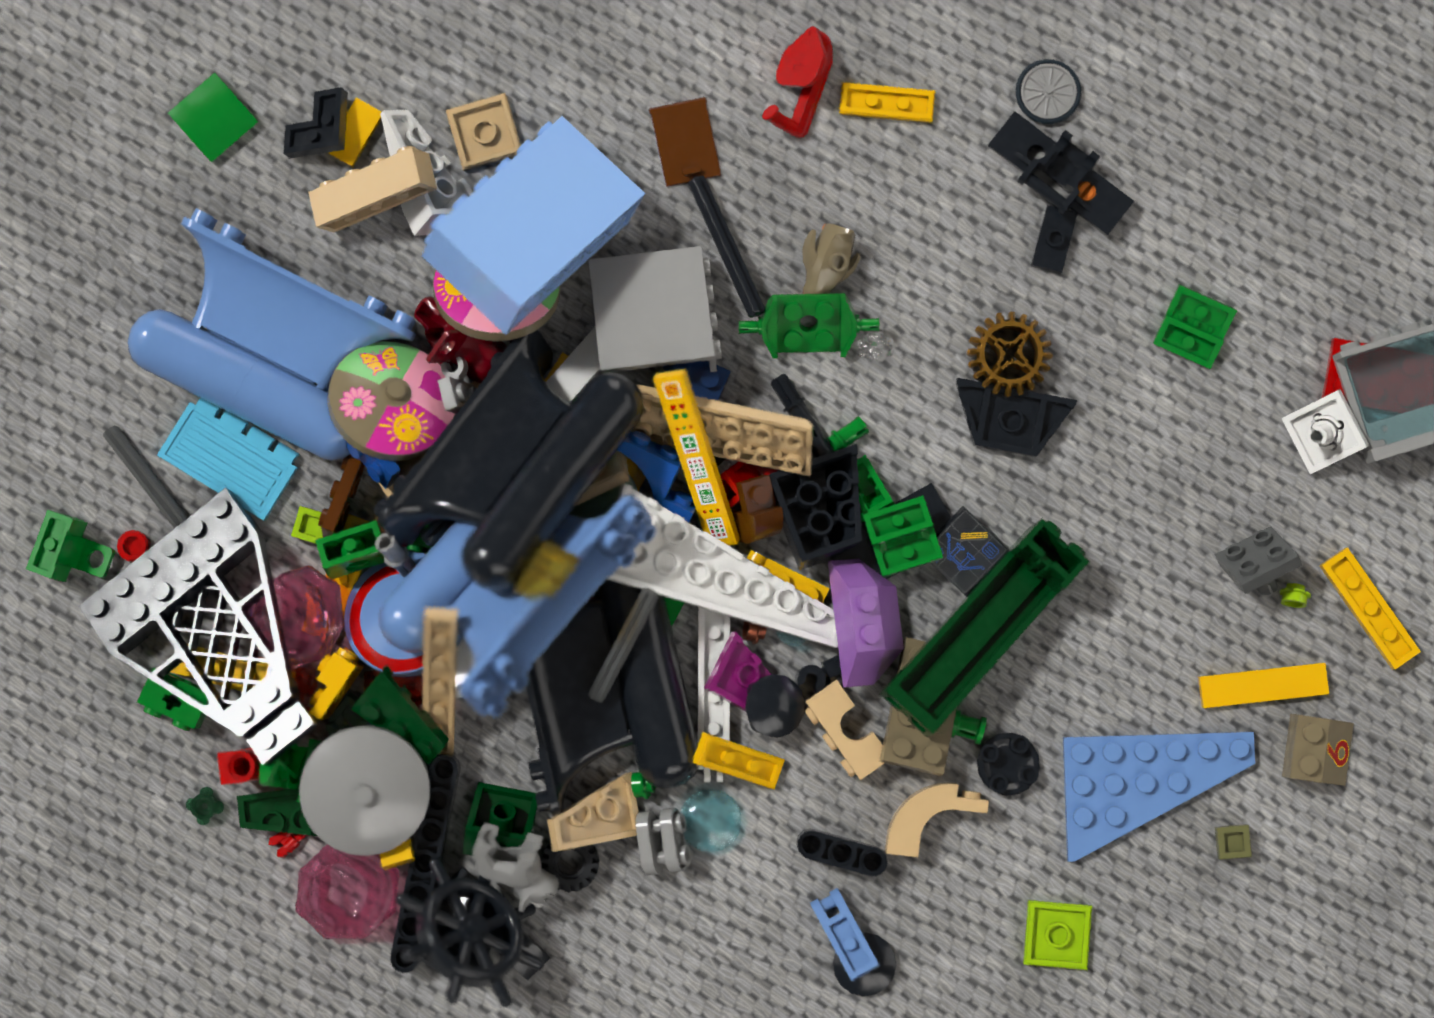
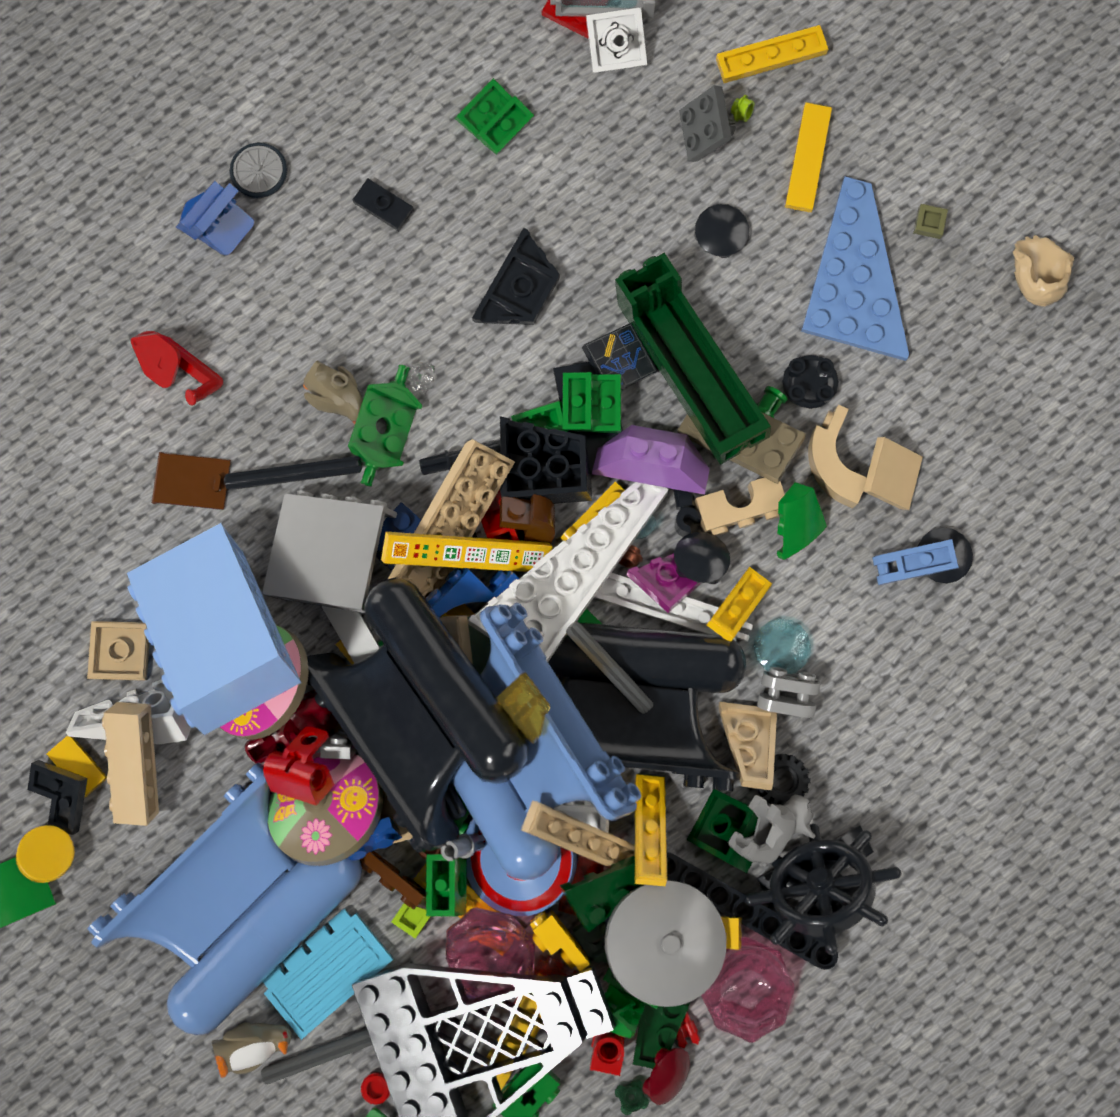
camera: 75 degrees left, 5 degrees down
(134, 406) = (249, 1046): none -> animal
(236, 834) = (667, 1075): none -> dark red dish
(256, 134) = (45, 854): none -> yellow head
(415, 359) = (296, 773): none -> red piece
(473, 740) = (650, 831): none -> yellow tile
(641, 787) = (735, 696): green plate -> none
(848, 434) = (489, 424): green pin -> none
(849, 796) = (799, 520): none -> green slope
(854, 862) = (853, 533): black beam -> none
(887, 102) = (219, 303): yellow tile -> none
(933, 882) = (893, 473): none -> tan tile
(976, 65) = (216, 218): none -> piece
(1021, 363) = (457, 275): pearl gold gear -> none
(1057, 934) = (965, 388): lime tile -> none
(1067, 165) = (354, 162): black piece -> none
(1147, 616) = (721, 230): none -> black dish
(1216, 979) = (1042, 270): none -> tan piece
(1317, 749) = (874, 132): dark tan slope -> none

